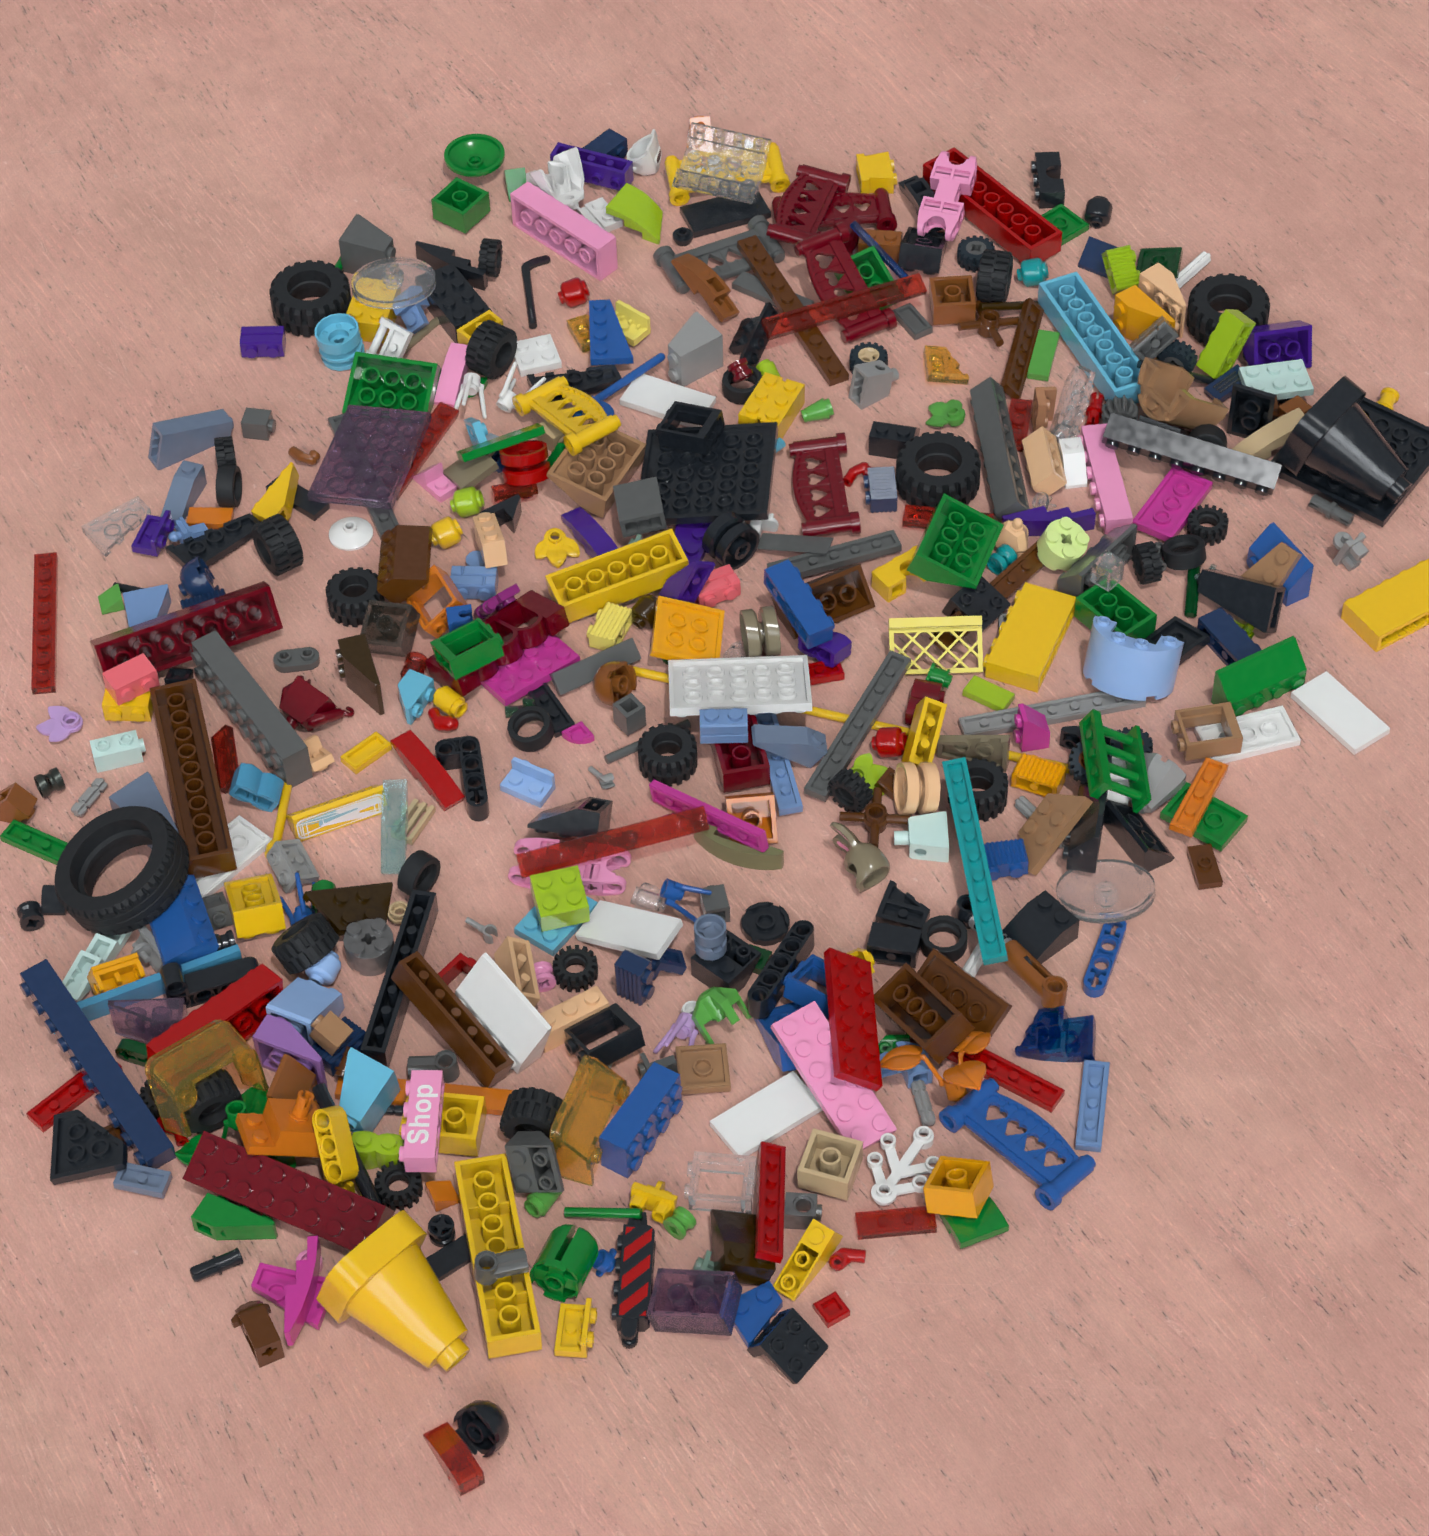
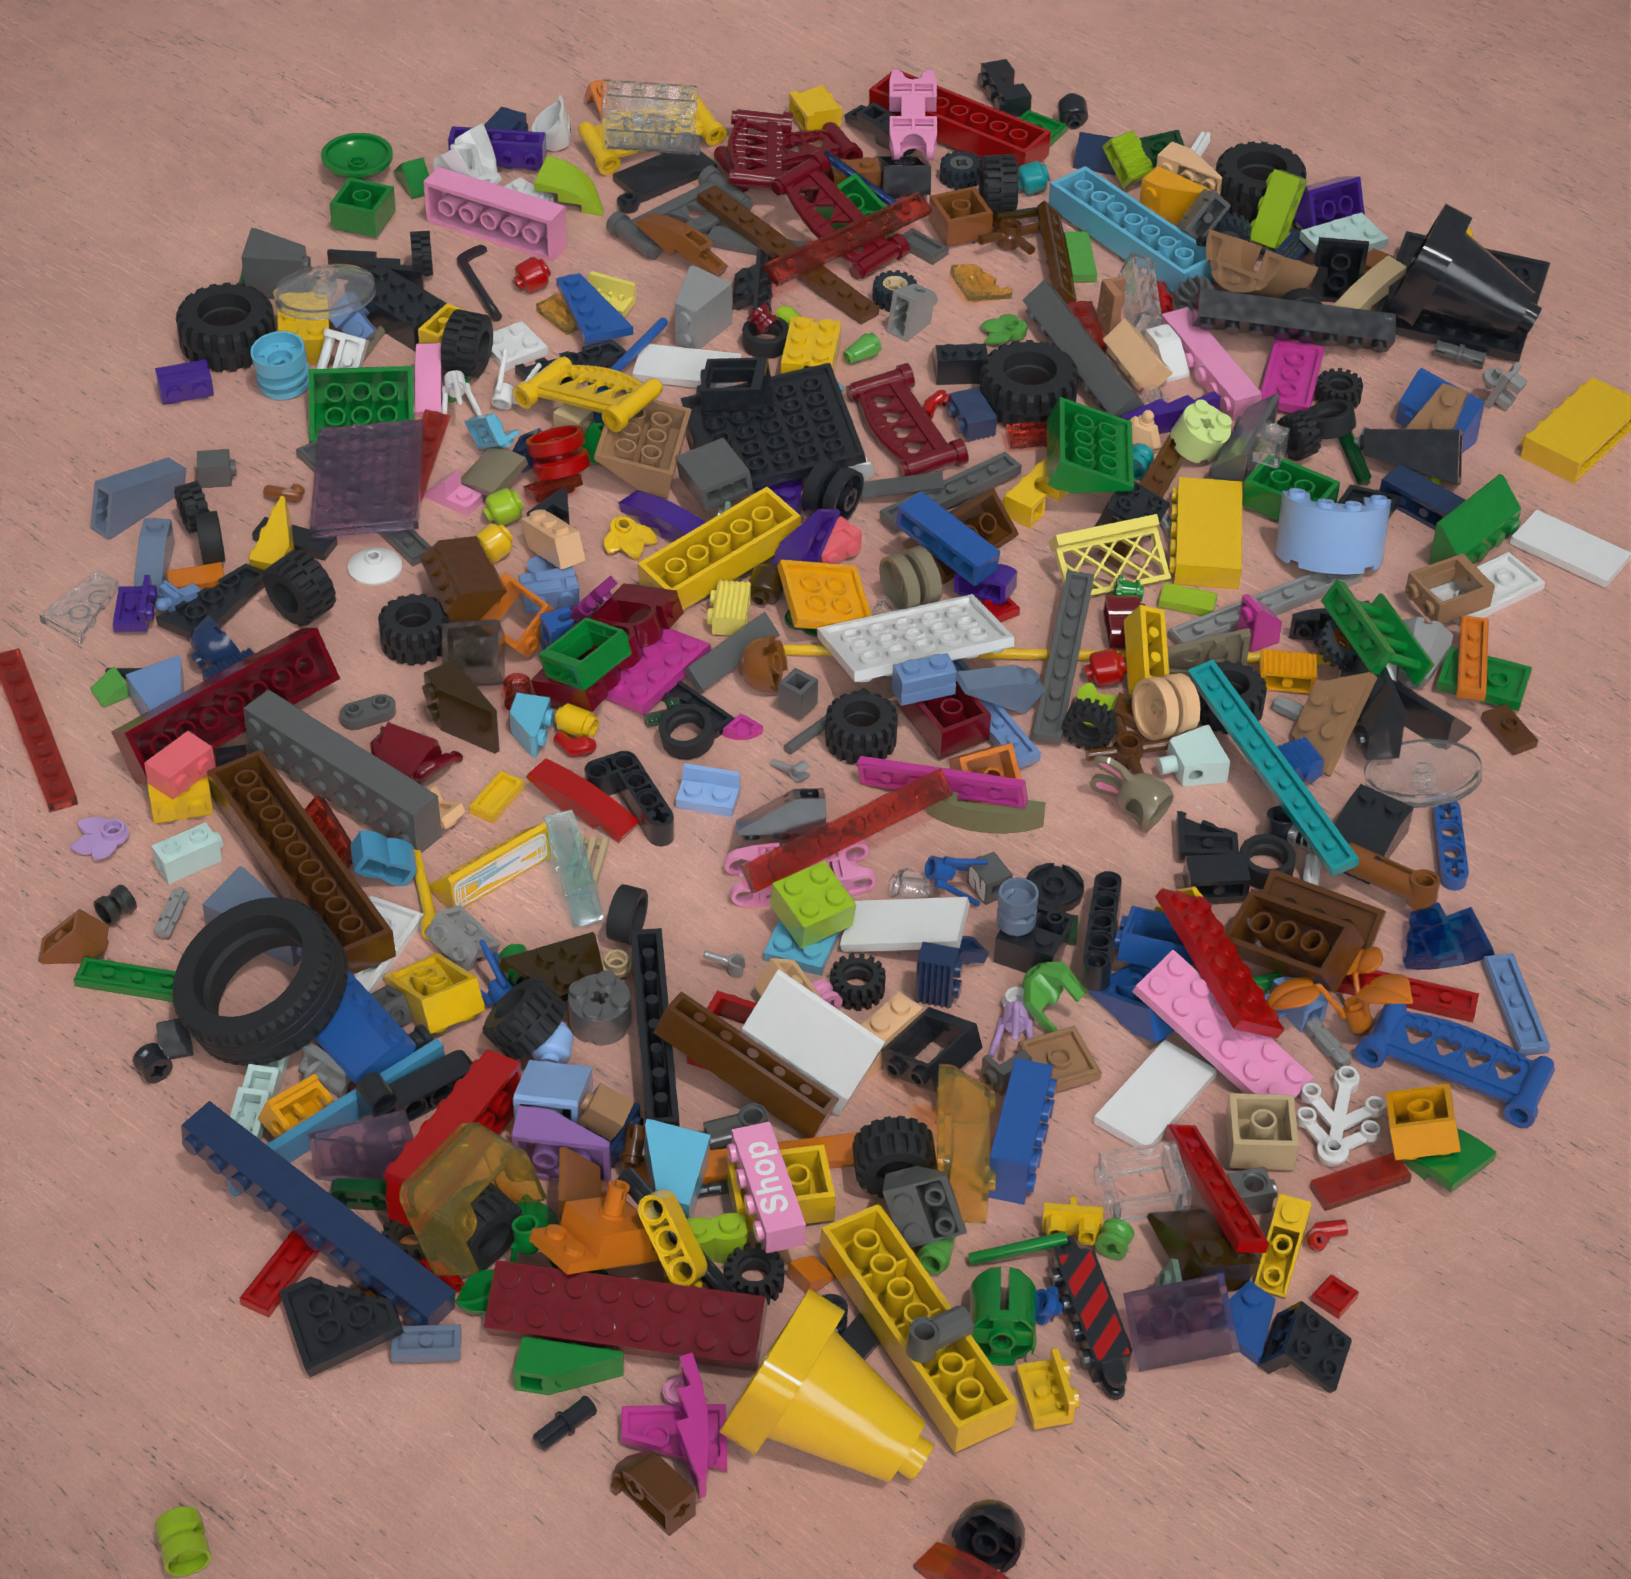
camera: 20 degrees left, 5 degrees down
(500, 442) = (523, 434): green tile -> none

